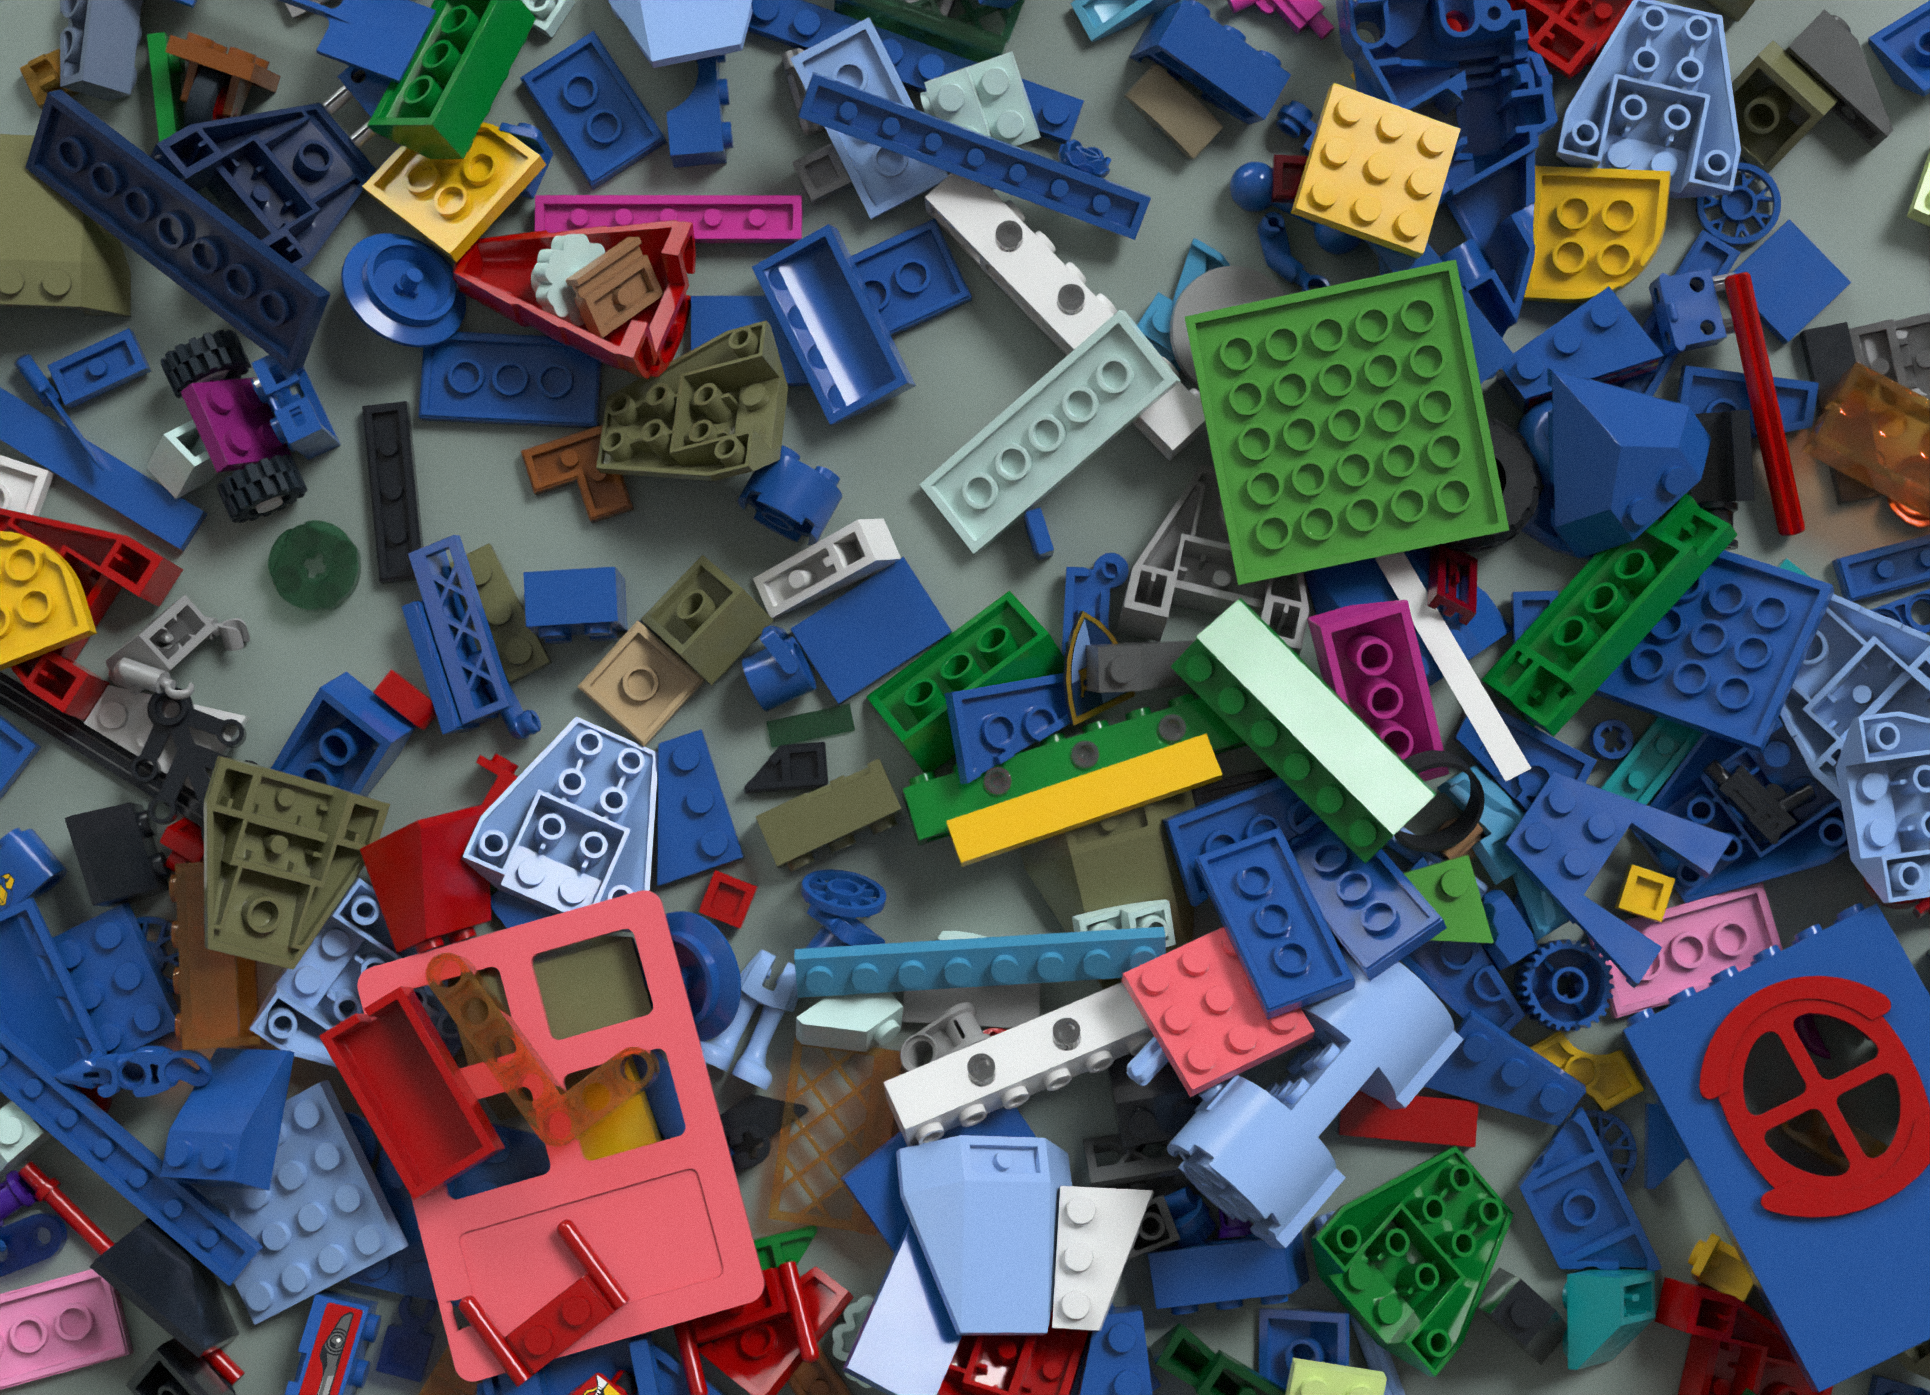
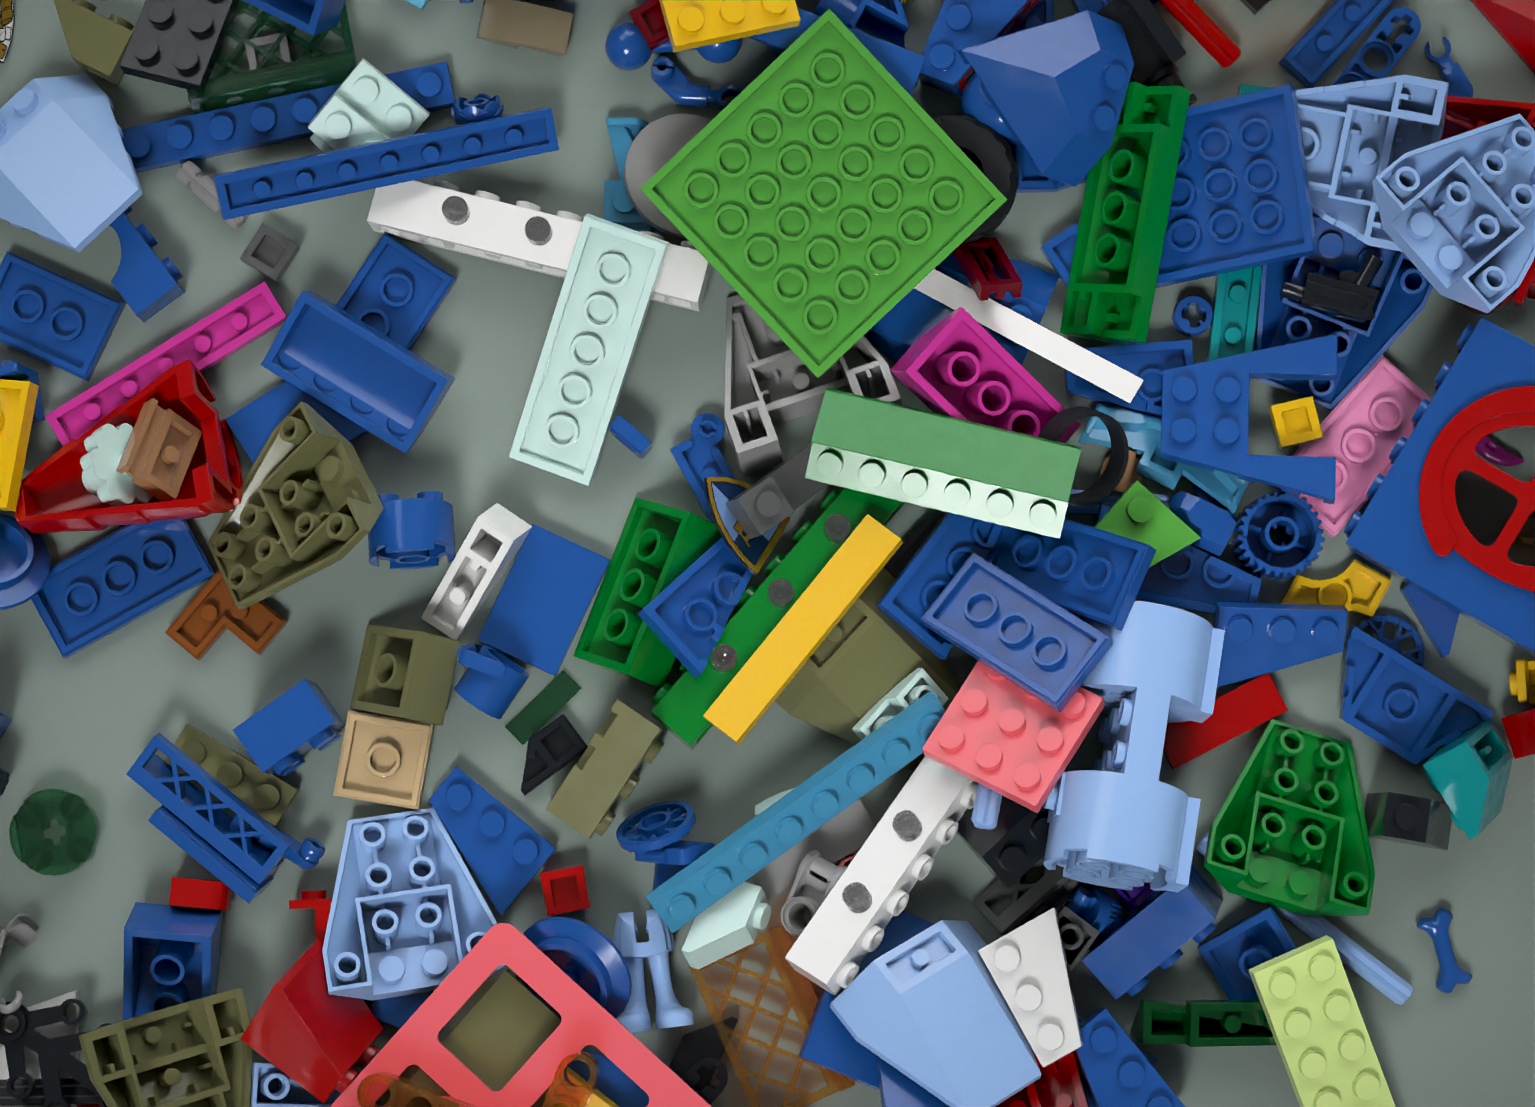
camera: 35 degrees left, 0 degrees up
(393, 488) = (79, 729): black tile -> none
(878, 174) = (245, 142): light blue plate -> none

